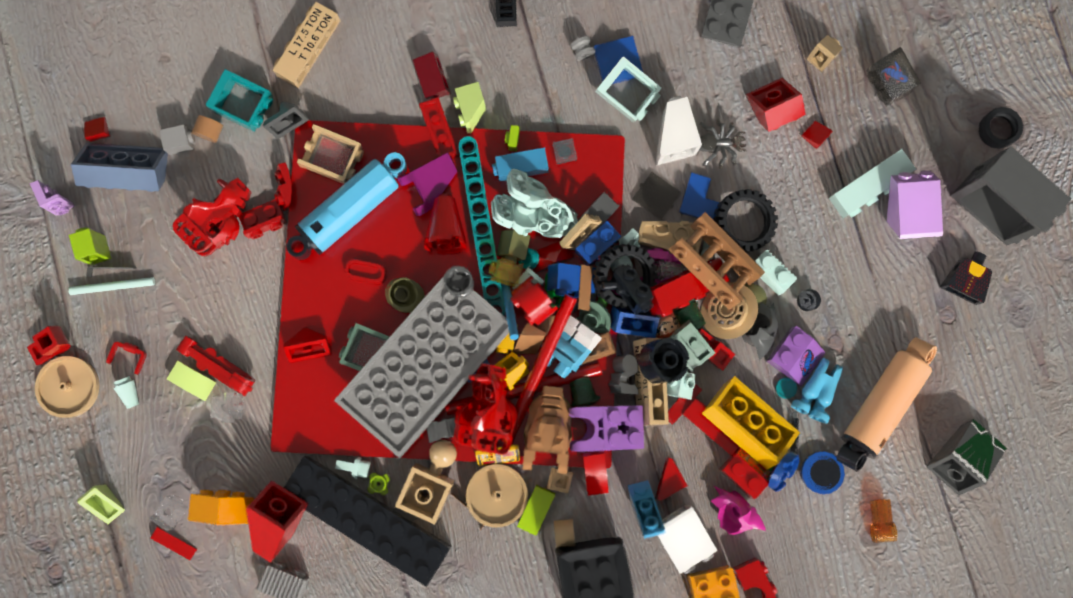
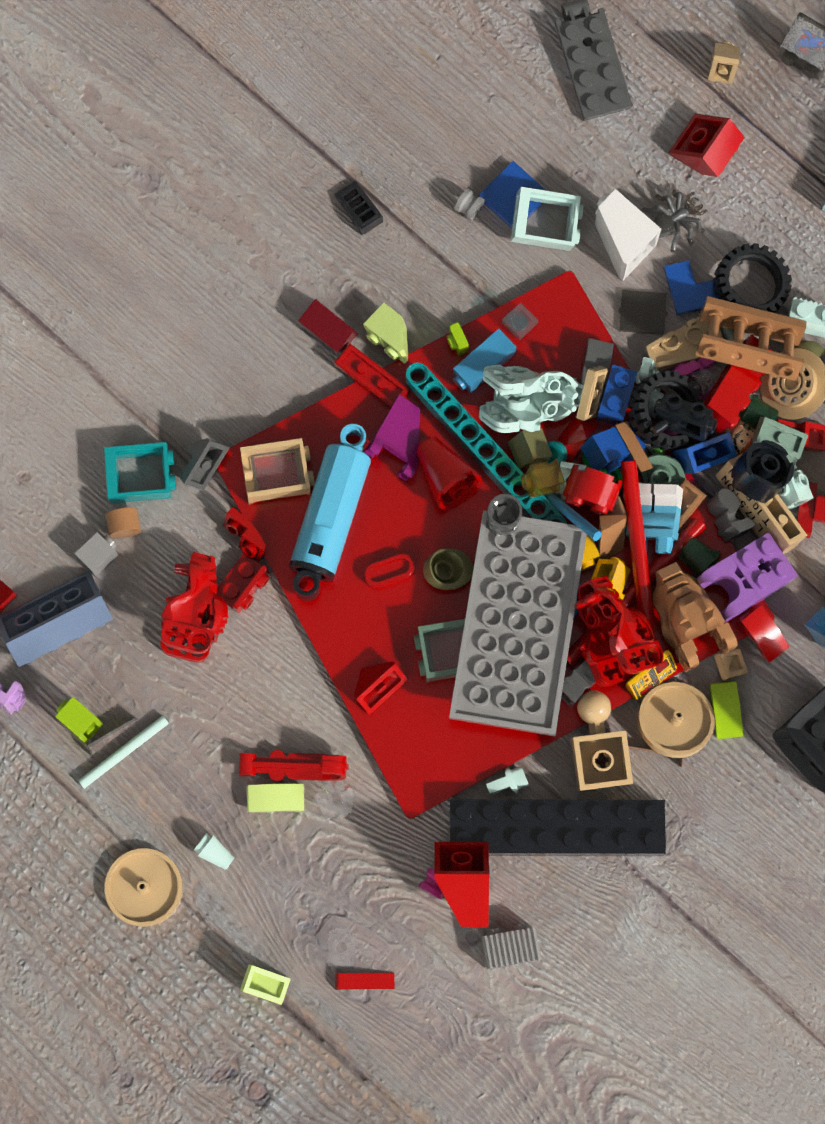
camera: 30 degrees left, 5 degrees down
(48, 344) = (98, 852): red brick -> none
(130, 348) = (187, 805): red piece -> none
(219, 508) = (398, 903): light orange brick -> none
(306, 44) = (172, 372): tan brick -> none
(382, 489) = (536, 782): lime plate -> none
(564, 533) = (770, 714): tan piece -> none
(816, 134) = (768, 151): red slope -> none

